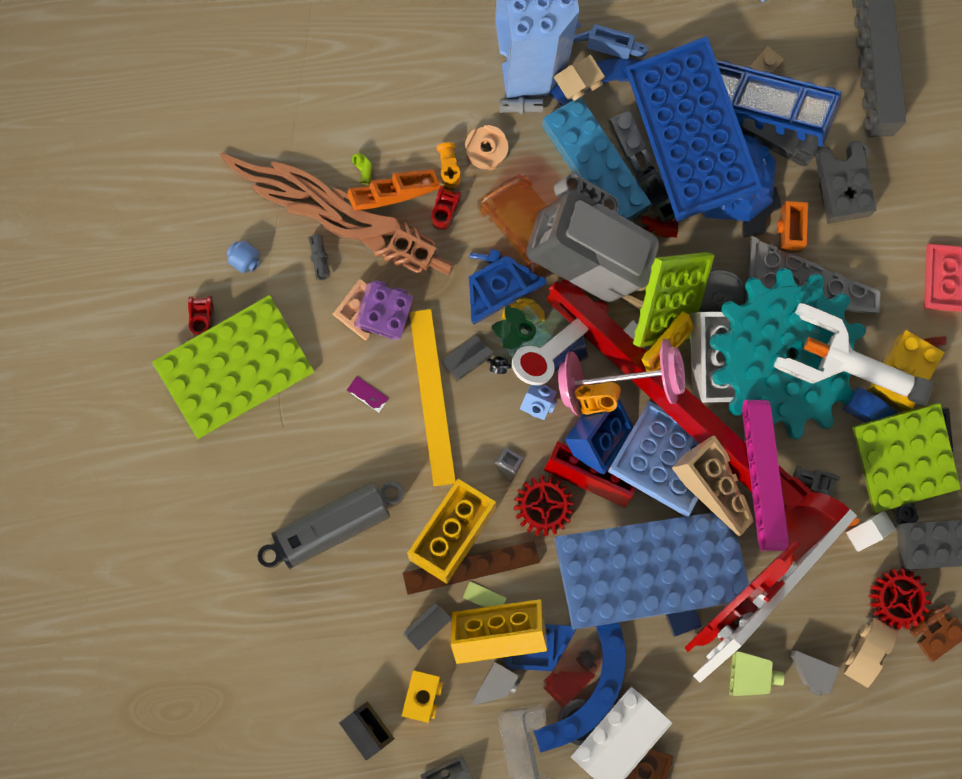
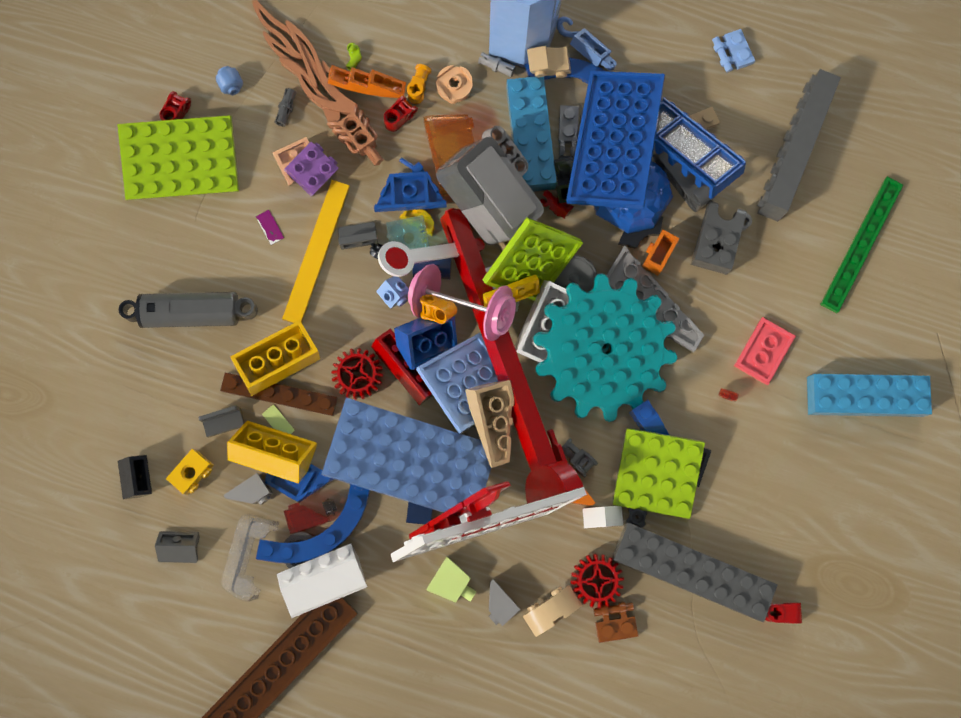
camera: 30 degrees right, 0 degrees up
(508, 463) = (348, 329): light grey slope -> none
(511, 328) = (399, 226): dark green plate -> none
(765, 475) = (532, 428): dark pink beam -> none
(840, 357) = (642, 368): white piece -> none
(913, 357) = (692, 406): yellow brick -> none

